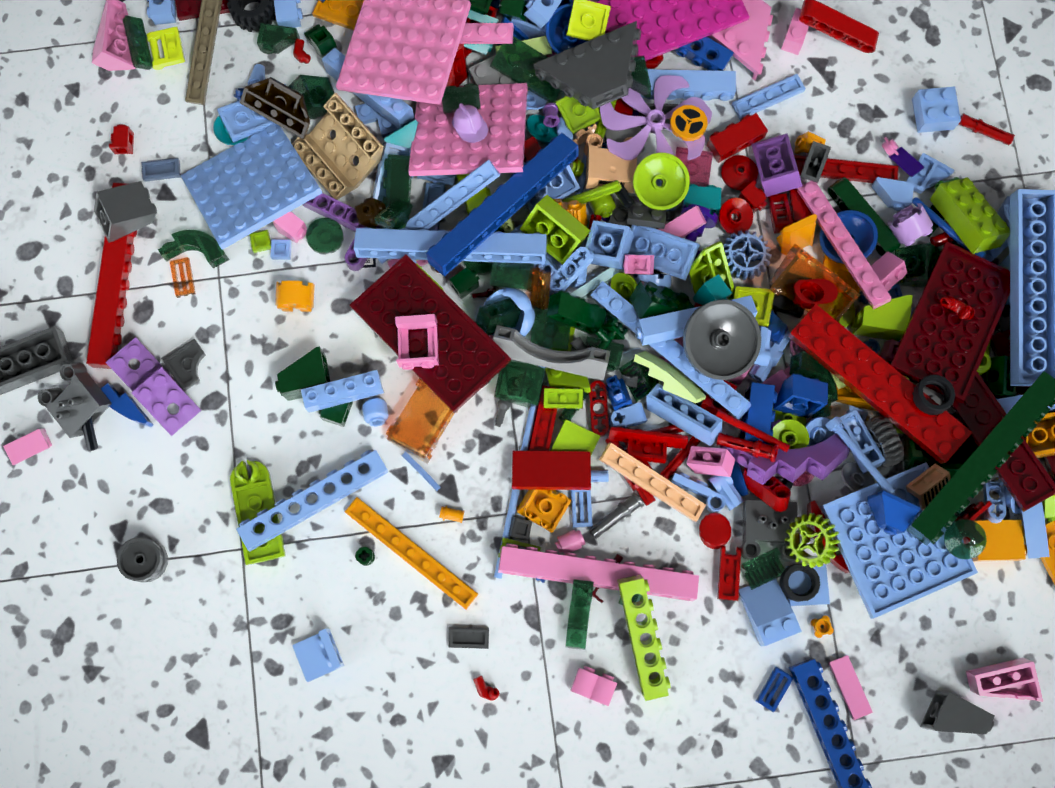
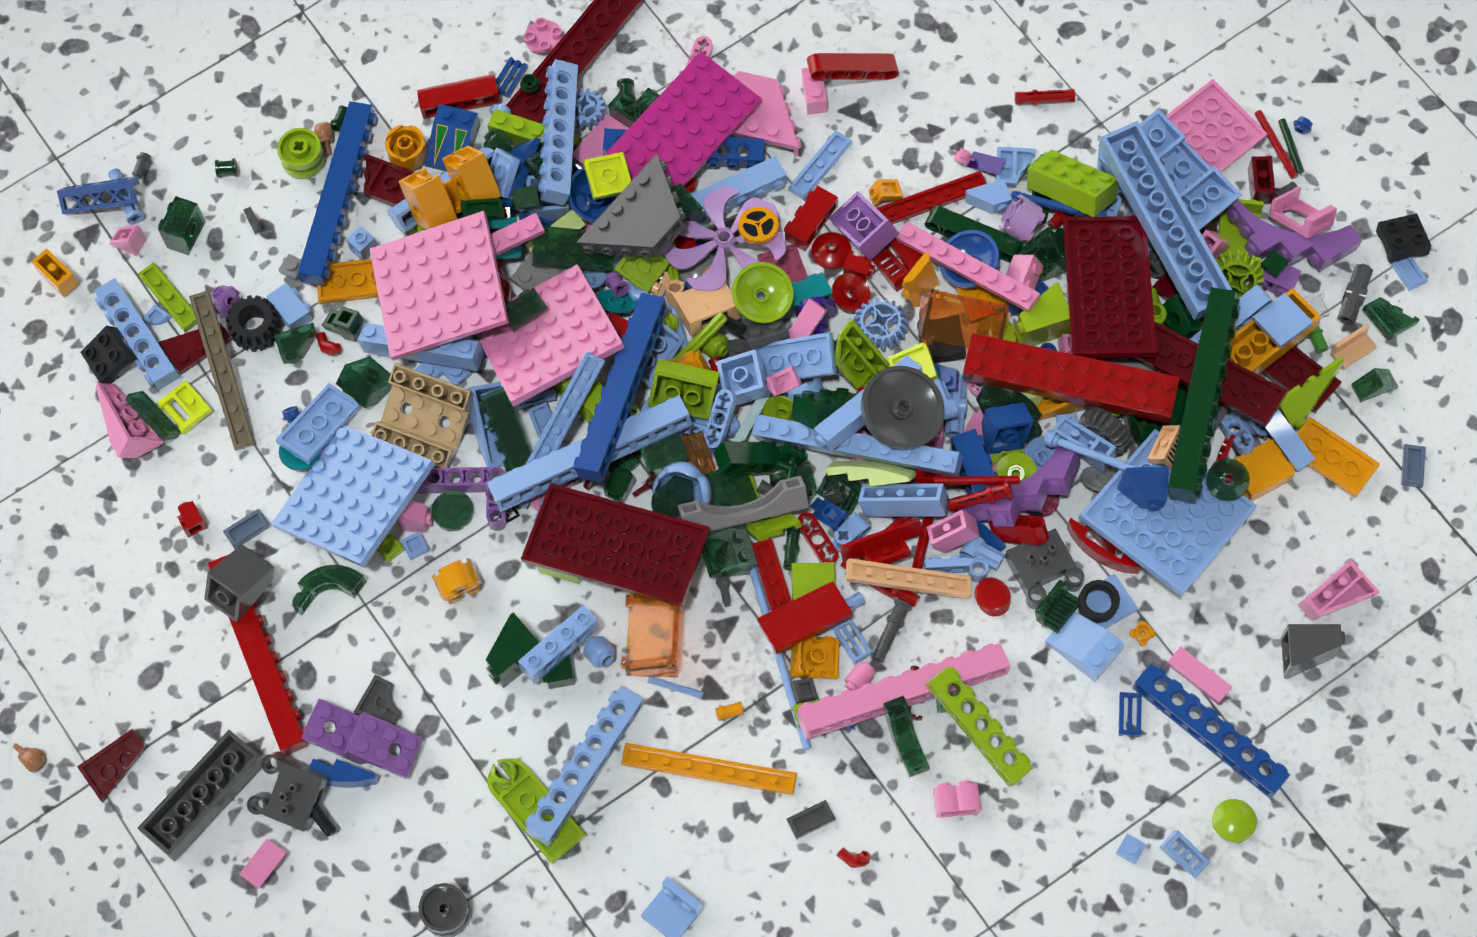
camera: 25 degrees left, 10 degrees down
(185, 292) = (339, 635): clear orange tile -> none
(257, 74) = (298, 392): light blue cone -> none
(278, 105) = (341, 403): dark brown wedge -> none
(368, 210) = (492, 460): dark brown brick -> none
(369, 560) = (669, 788): dark green bush -> none
(395, 215) = (518, 451): clear green slope -> none
(404, 135) = (484, 371): slope -> none
(407, 323) = (600, 538): bright pink panel -> none
(469, 124) = (545, 328): lavender piece -> none
(563, 398) = (779, 544): lime plate -> none
(712, 290) = (866, 369): teal slope -> none
(729, 575) = (1029, 630): red hinge -> none
(800, 527) = (1079, 549): lime gear -> none
(814, 292) = (963, 324): red piece -> none
(815, 161) = (899, 204): dark grey slope -> none
(936, 109) = (987, 100): light blue brick -> none
(946, 388) = (1127, 346): black tyre -> none
(961, 309) = (1112, 272): red piece -> none

